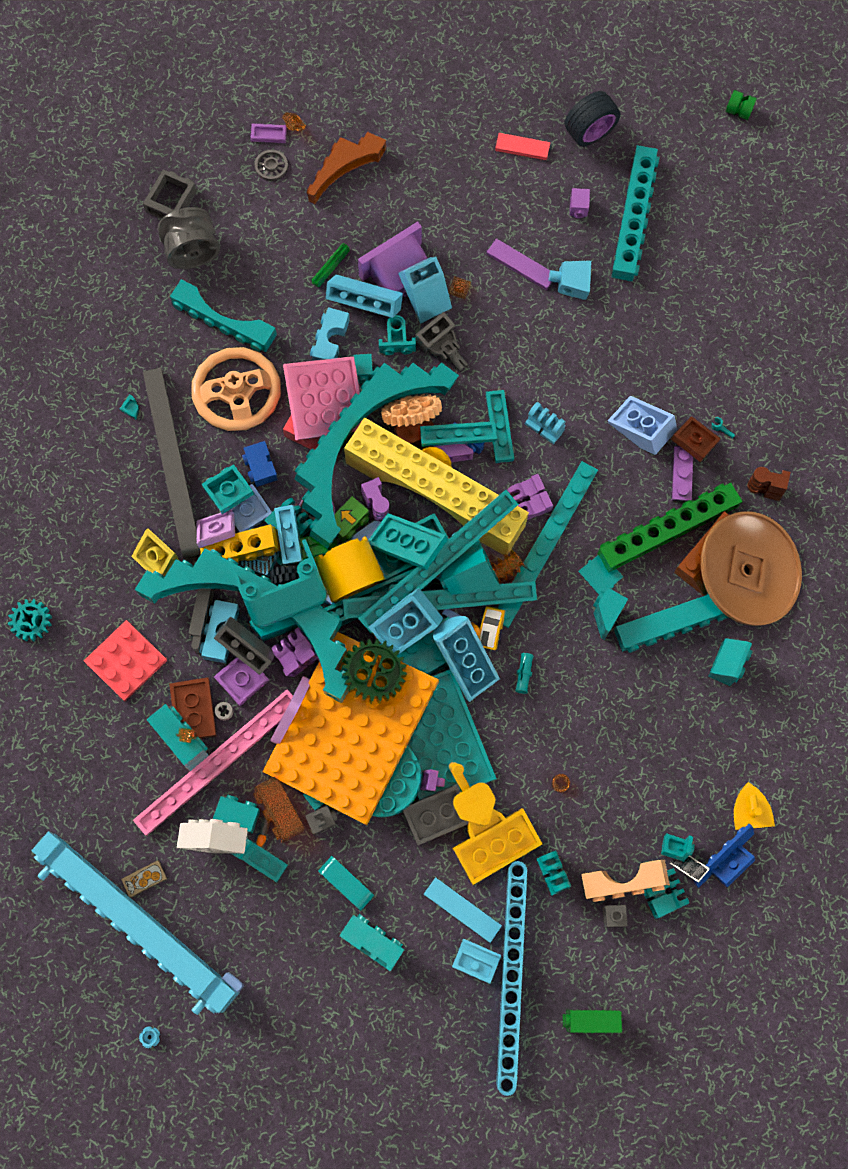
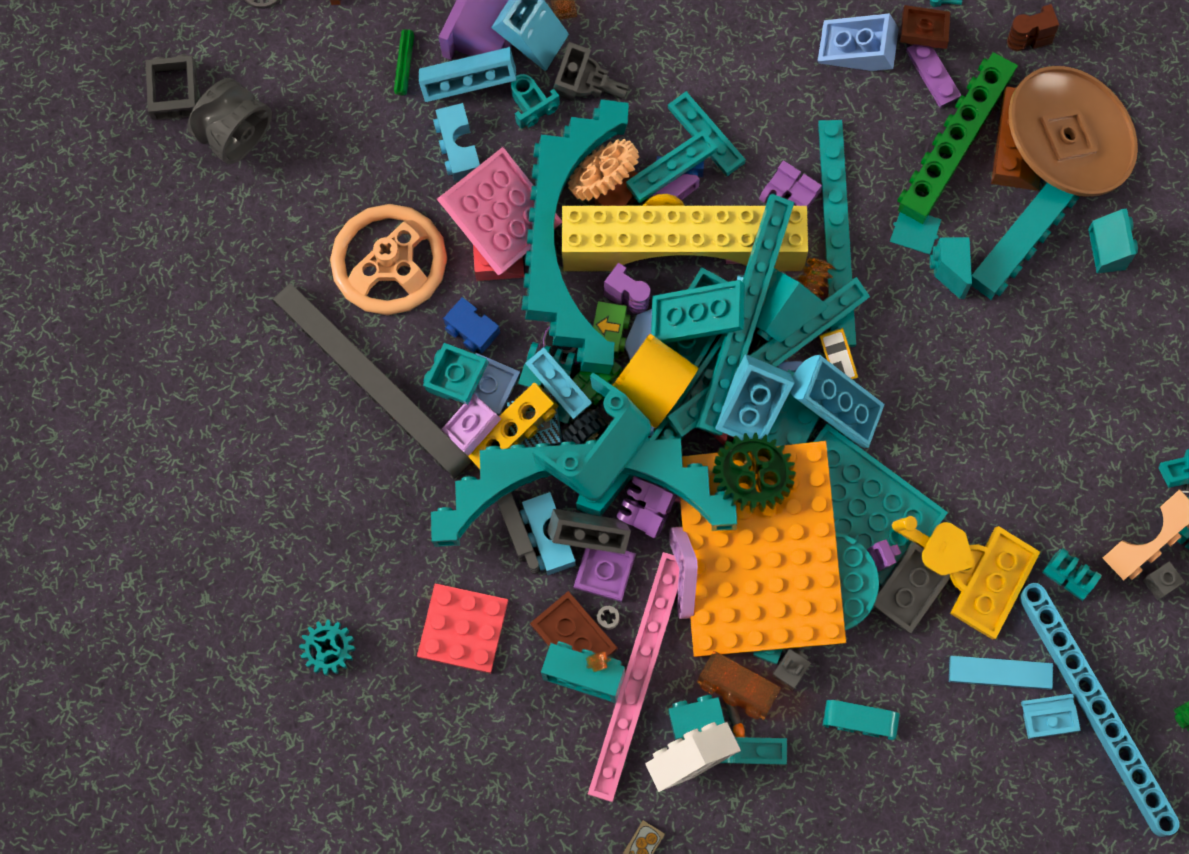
camera: 25 degrees left, 0 degrees up
(130, 407) = (282, 348): teal tile -> none
(154, 554) = (419, 493): light yellow slope -> none
(256, 332) = (371, 184): teal arch -> none
(363, 367) = (519, 153): teal brick -> none
(372, 942) = (932, 763): teal wedge -> none
(524, 673) = (904, 383): teal pin -> none
(541, 419) = (745, 101): medium azure legs -> none
(565, 779) = (1014, 483): clear orange bush -> none

